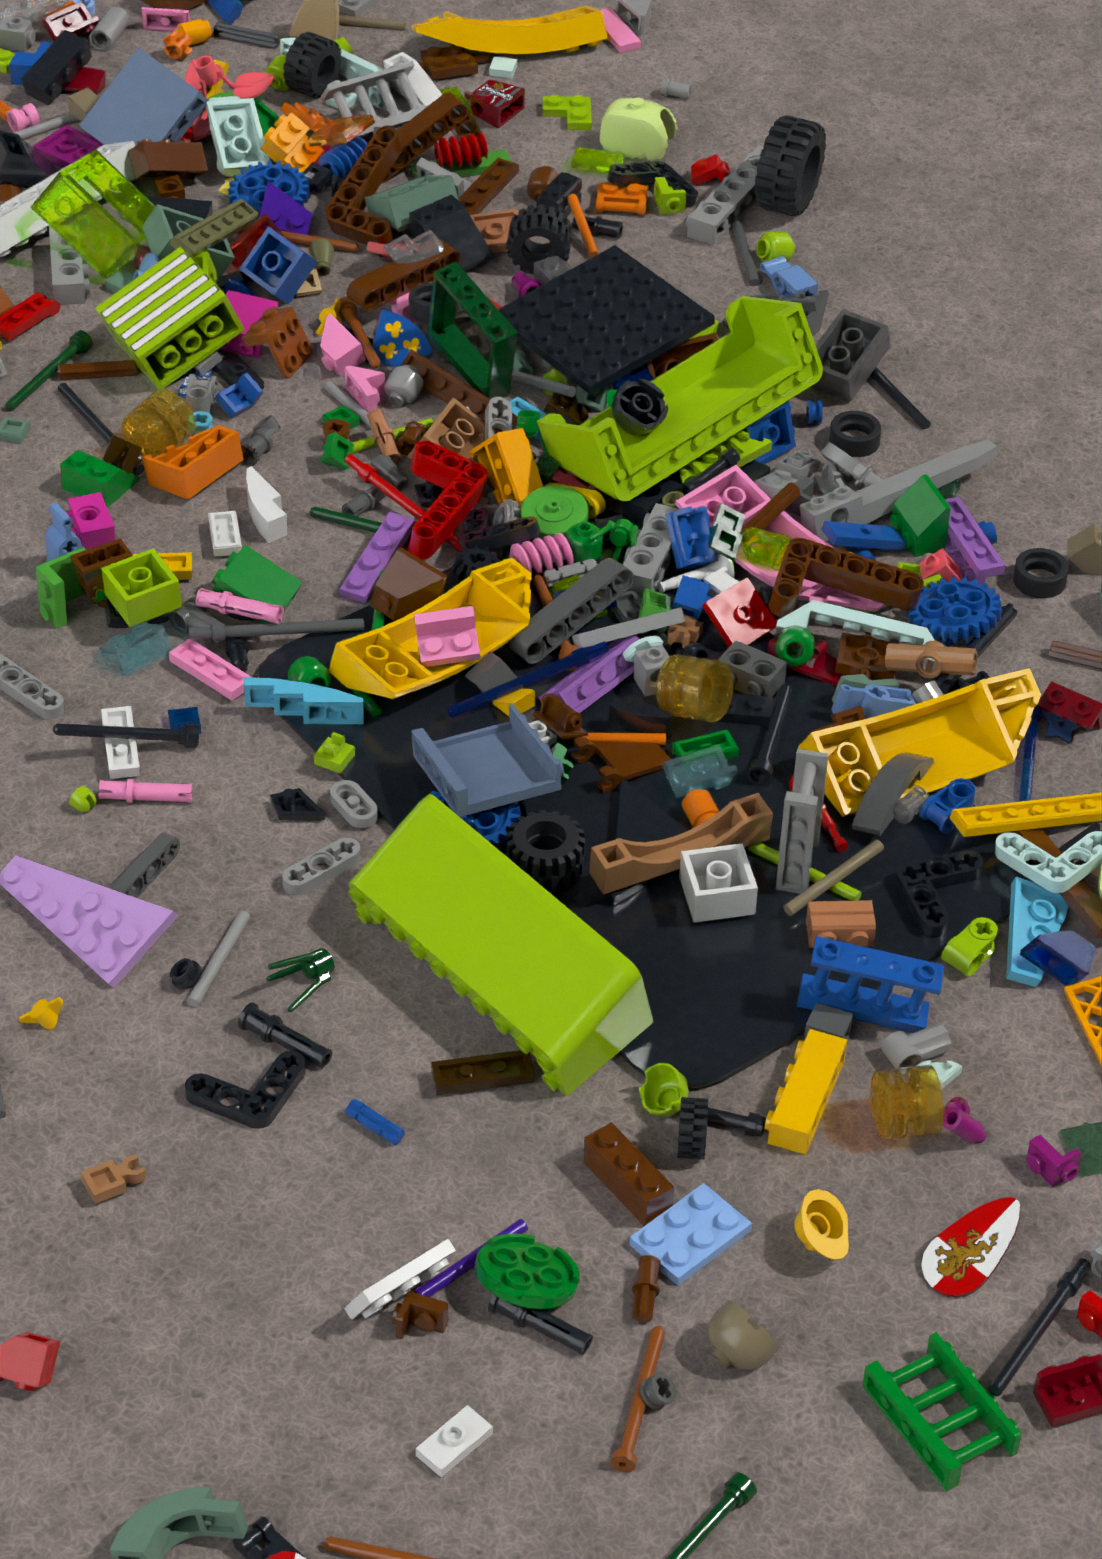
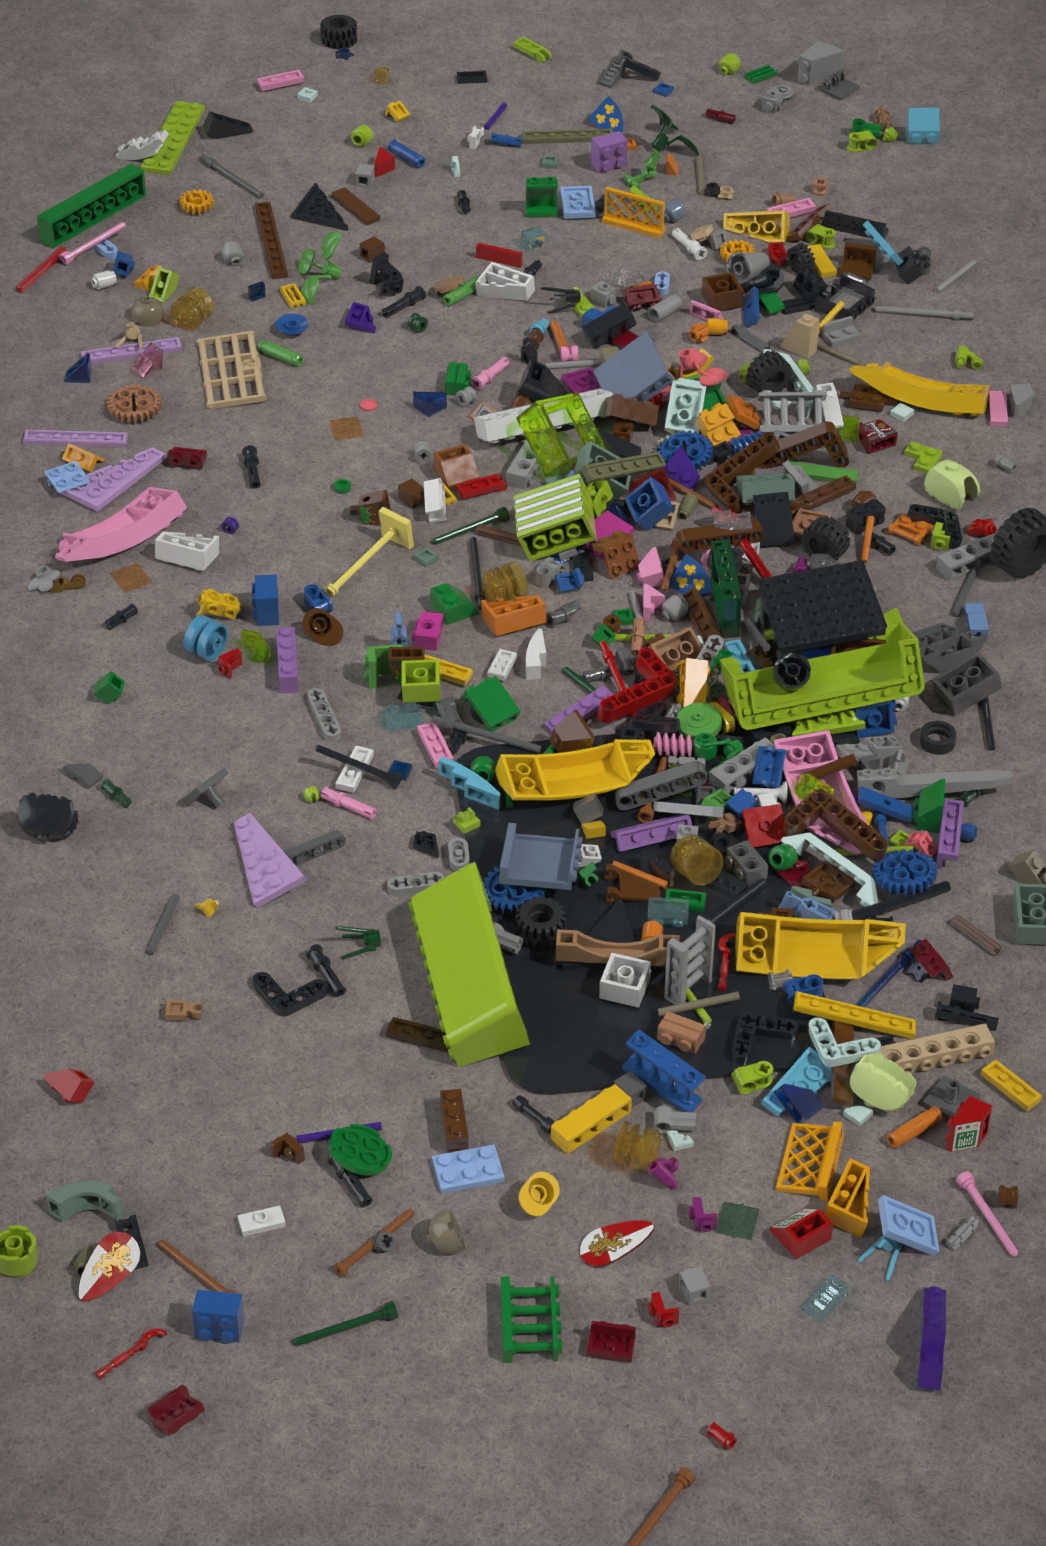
camera: 30 degrees right, 0 degrees up
(123, 454) = (473, 594): dark brown bracket -> none
(185, 973) = (297, 915): black plate -> none
(203, 421) = (537, 586): medium azure bush -> none
(218, 959) = (322, 914): light grey bar -> none
(228, 603) = (465, 708): bright pink pin -> none
(334, 311) = (664, 547): yellow piece -> none
(341, 130) = (752, 425): clear orange plate -> none
(375, 1122) = (341, 1037): blue axle -> none
(401, 1281) = (280, 1125): white plate -> none
(447, 636) = (570, 774): bright pink bracket -> none
(460, 150) = (822, 463): red piece -> none
(560, 718) = (608, 849): reddish brown hinge -> none
(577, 658) = (647, 816): clear blue bar -> none
(595, 159) = (912, 496): clear neon green plate -> none
(641, 644) = (686, 821): light aqua tile -> none
(645, 1288) = (419, 1187): reddish brown axle -> none
(663, 1090) = (509, 1085): lime hair -> none
(692, 1128) = (506, 1111): black tyre -> none
(725, 531) = (790, 770): slope -> none
(726, 460) = (827, 724): black bar -> none
(775, 245) = (984, 594): lime head -> none
(814, 412) = (922, 714): blue bush -> none
(850, 466) = (913, 756): light grey pin -> none
(885, 790) = (754, 973): dark grey slope -> none
(915, 659) = (857, 896): medium nougat piece -> none
(1040, 586) = (981, 879): black tyre -> none
(1067, 1287) = (656, 1286): black bar -> none

